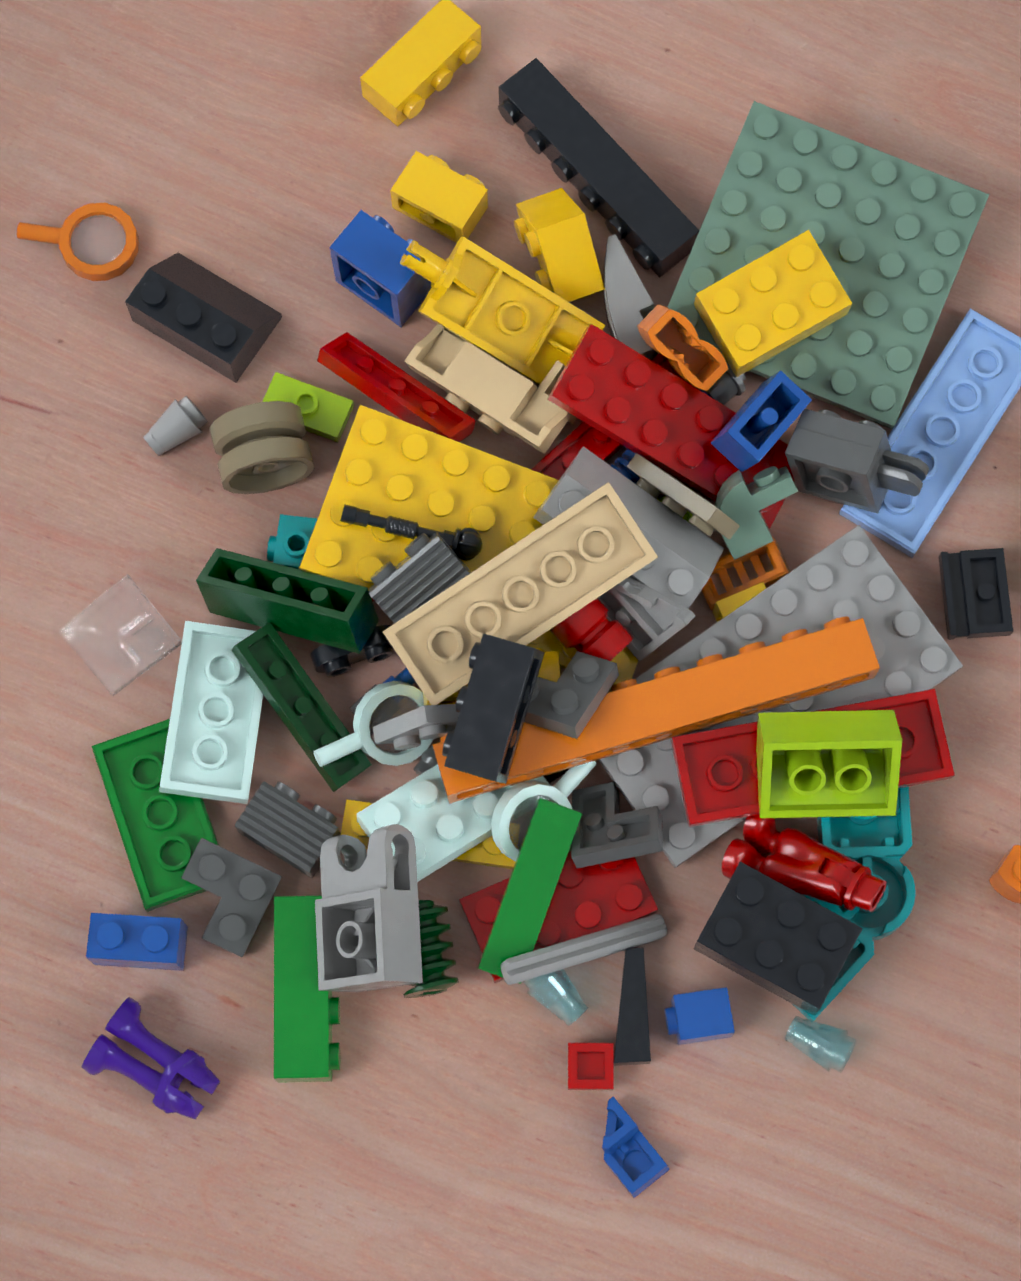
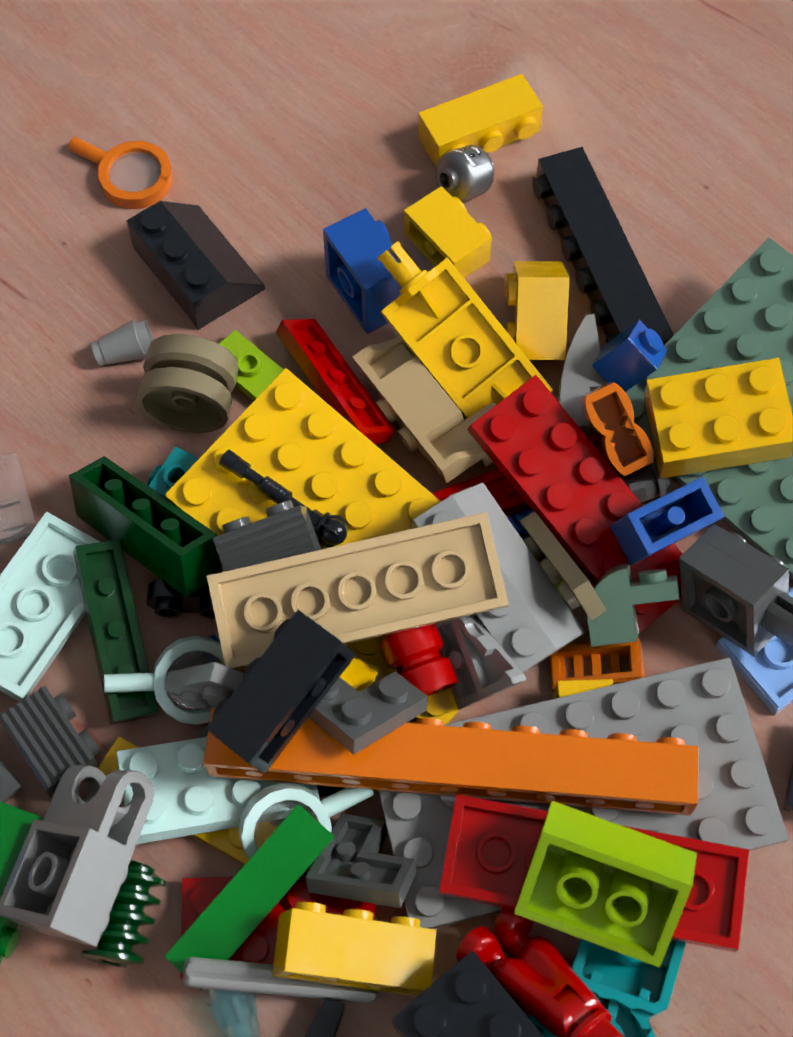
camera: 20 degrees right, 10 degrees down
(431, 125) = (465, 172): none -> flat silver head
(637, 900) = (354, 950): none -> yellow brick
(667, 269) = (630, 356): none -> blue brick

